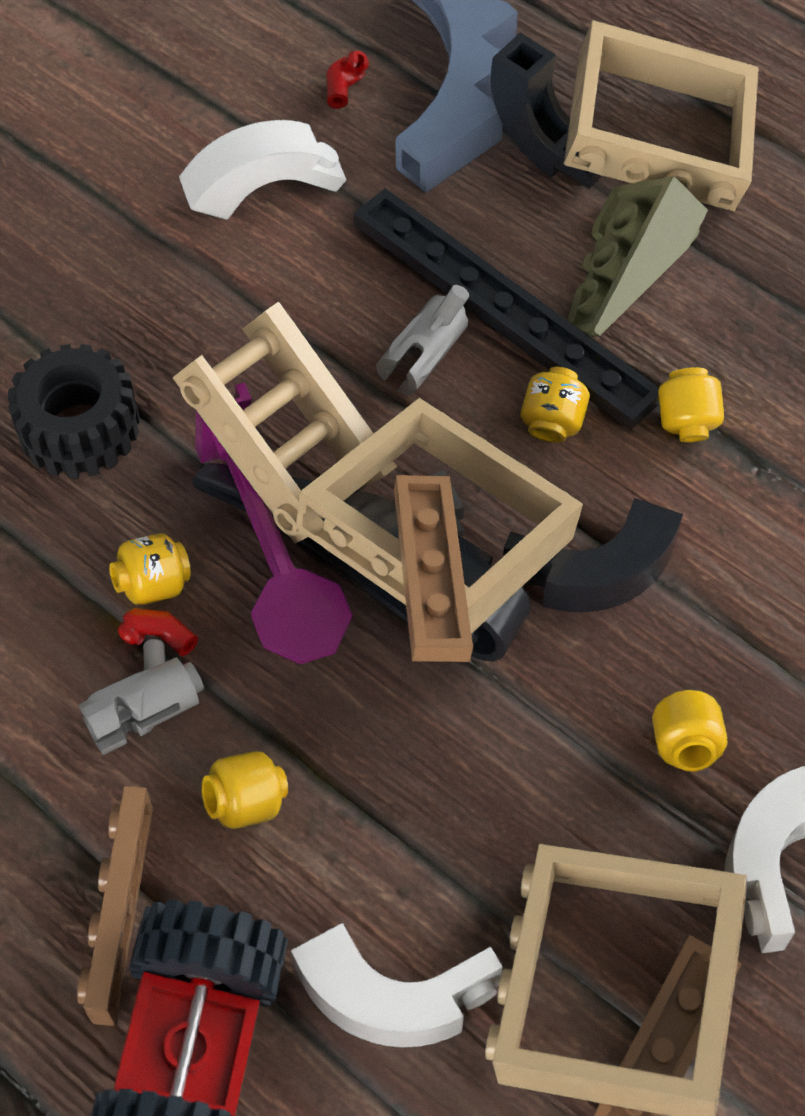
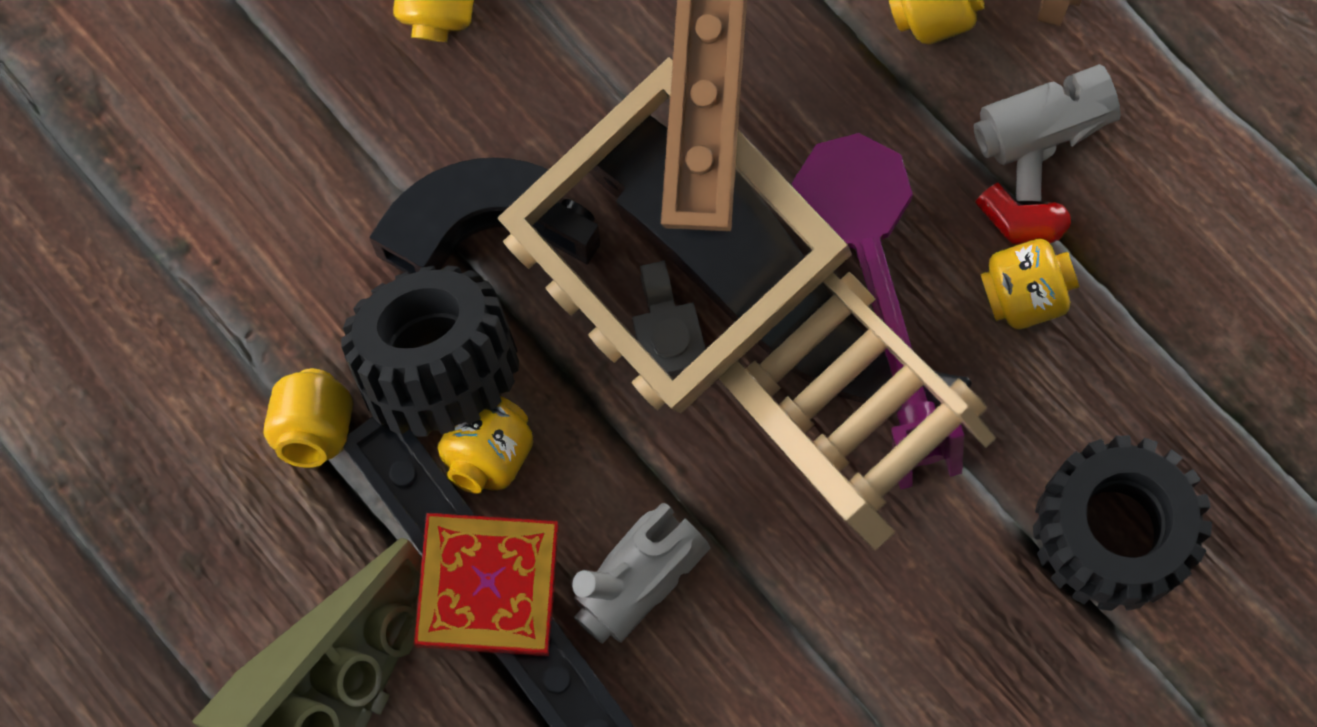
camera: 170 degrees left, 15 degrees up
(530, 312) = (487, 584): none -> tile
(647, 428) = (430, 350): none -> black tyre

